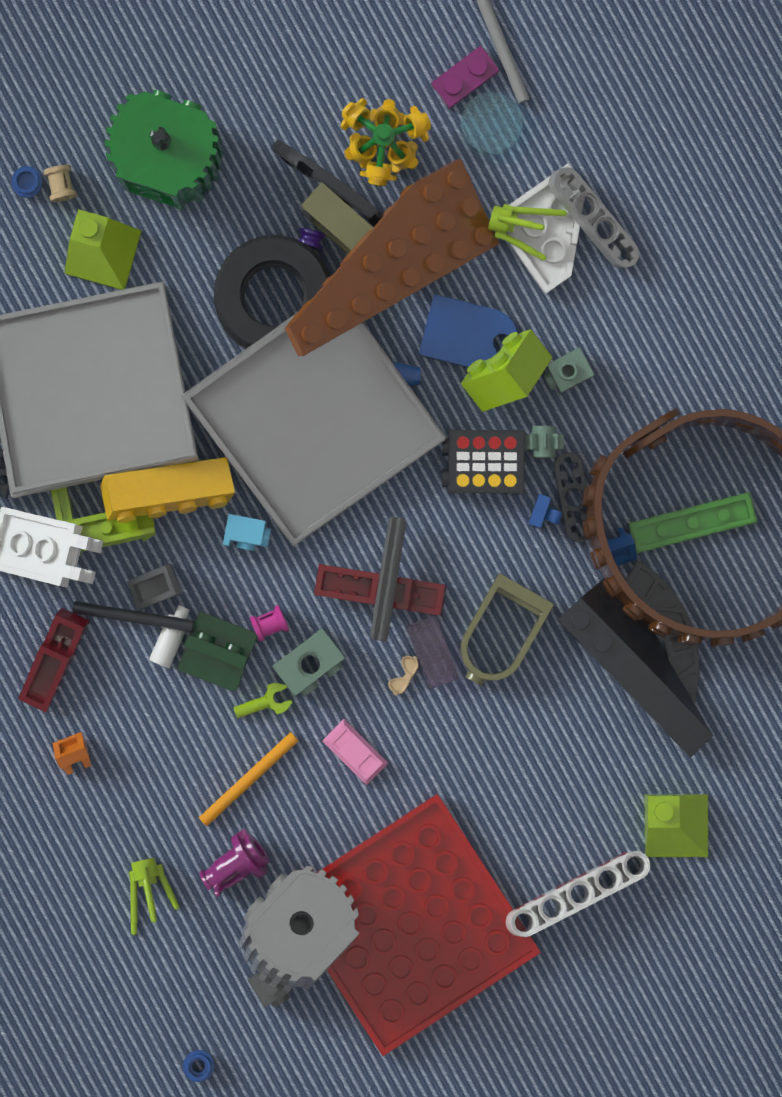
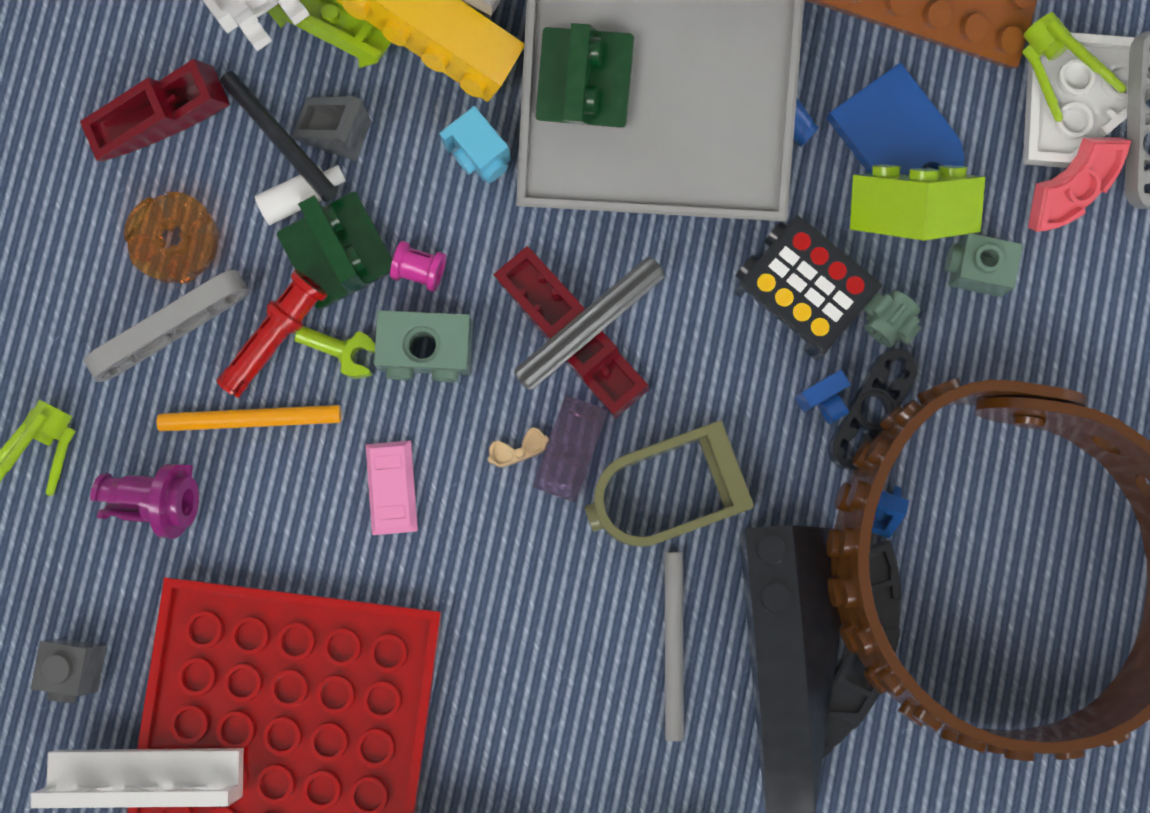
camera: 45 degrees right, 5 degrees down
(70, 751) = (85, 223): orange tile -> none
(108, 709) = (166, 212): none -> clear orange plate
(163, 767) = (166, 326): none -> light grey beam
(223, 712) = (281, 319): none -> red pin
(277, 452) = (584, 76): none -> dark green bracket
(298, 928) = (126, 630): light grey piece -> none
(358, 1002) = (142, 778): none -> white fence
(572, 709) = (674, 647): none -> light grey bar
(584, 284) = (1070, 192): none -> coral tile
(693, 522) = (988, 551): bright green tile -> none

